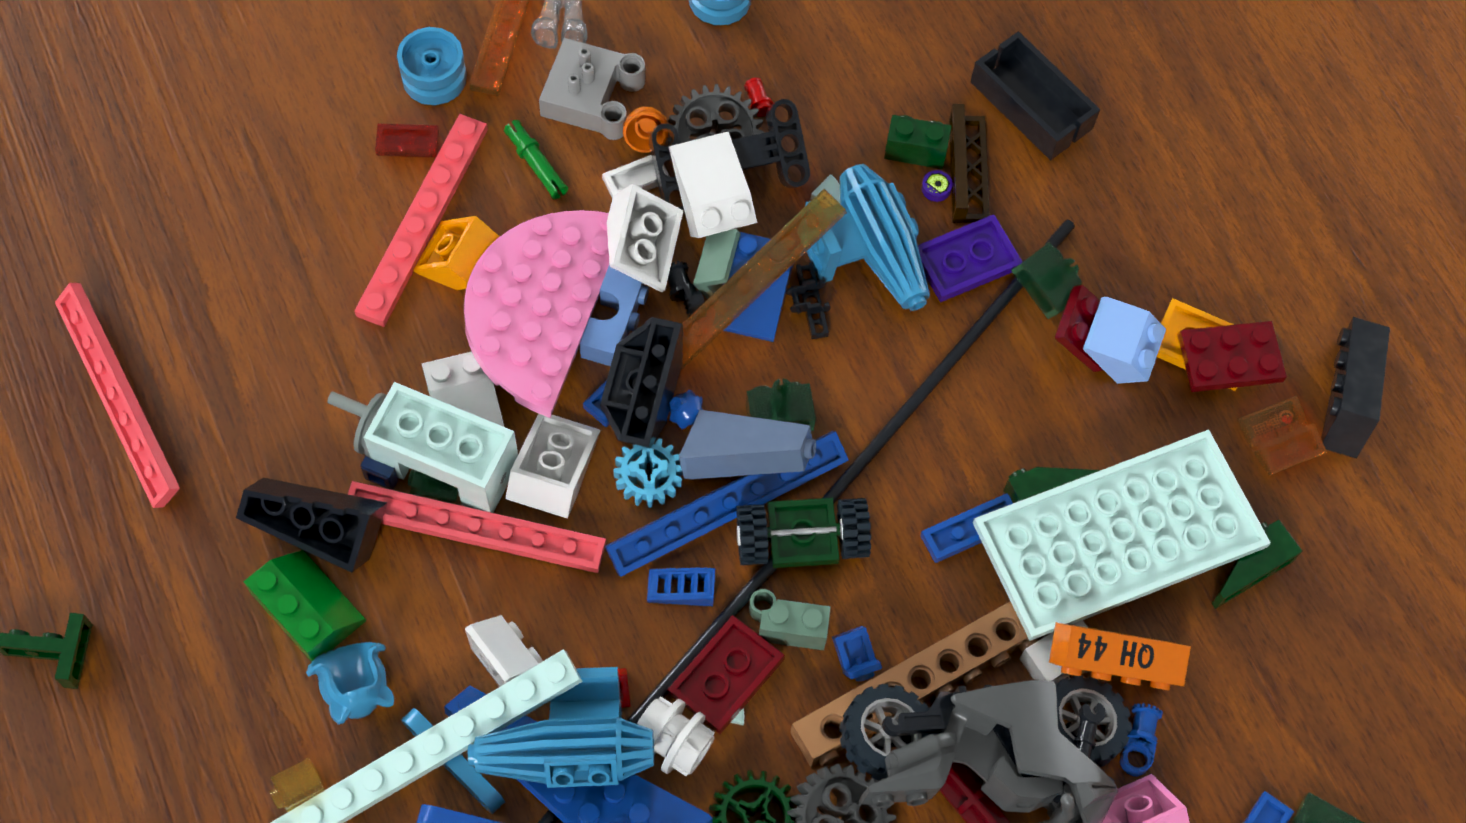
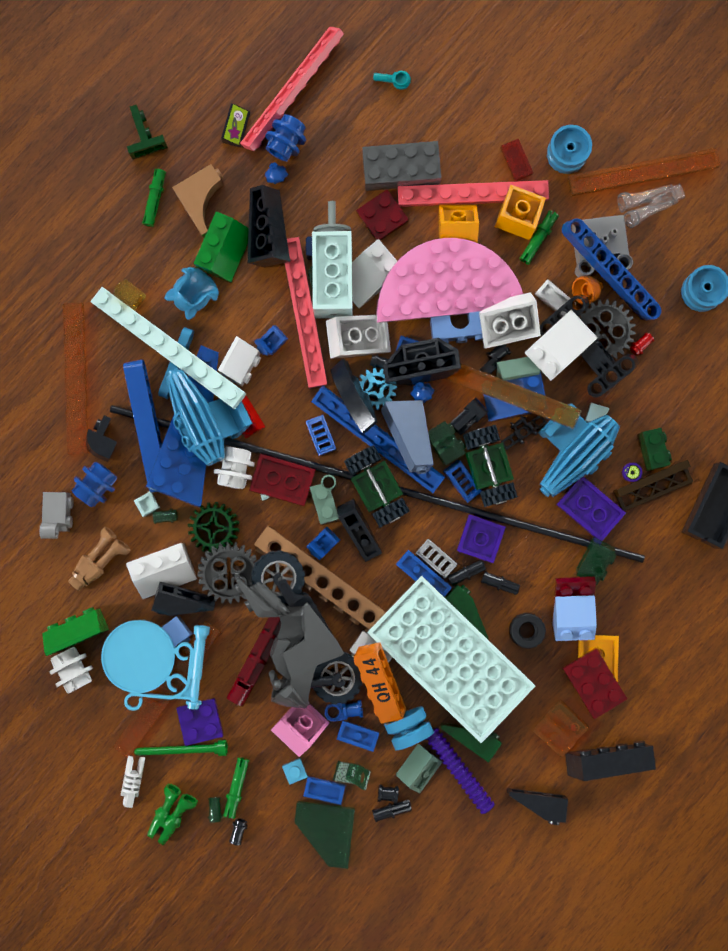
camera: 70 degrees right, 20 degrees up
(122, 502) = (235, 125): none -> slope
(151, 669) = (156, 189): none -> green pin
(188, 429) = (284, 140): none -> blue piece
(195, 241) = (400, 79): none -> teal plate
(196, 612) = (196, 192): none -> medium nougat arch
(233, 473) = (276, 173): none -> blue piece
(326, 291) = (401, 165): none -> dark grey brick
(385, 353) = (382, 215): none -> dark red plate
(488, 164) = (520, 212): none -> light orange slope
(494, 593) = (271, 341): none -> blue bracket
(608, 451) = (377, 361): none -> black pin
(633, 81) = (603, 266): none -> blue beam
(646, 502) = (354, 398): none -> black slope
(752, 354) = (472, 413): none -> black piece
(828, 417) = (452, 478): none -> blue slope
(845, 360) = (489, 465): none -> plate
(859, 590) = (358, 529): none -> black slope
(948, 423) = (481, 538): none -> dark purple plate
(959, 483) = (450, 567): none -> light grey slope
(992, 466) = (466, 572): none -> black axle
(1027, 425) = (500, 583): none -> black axle
(1118, 399) = (539, 633): none -> black tyre
(1189, 735) = (357, 735): none -> blue plate
(1213, 643) = (409, 729): none -> dark azure wheel
(1247, 772) = (351, 773): none -> clear green bracket
(1273, 665) = (418, 768): none -> sand green panel
(1298, 605) = (460, 772): none -> dark purple piece
(1300, 728) = (388, 793): none -> black bush
(1329, 734) = (392, 810): none -> black axle
(1395, 502) = (546, 805): none -> black slope

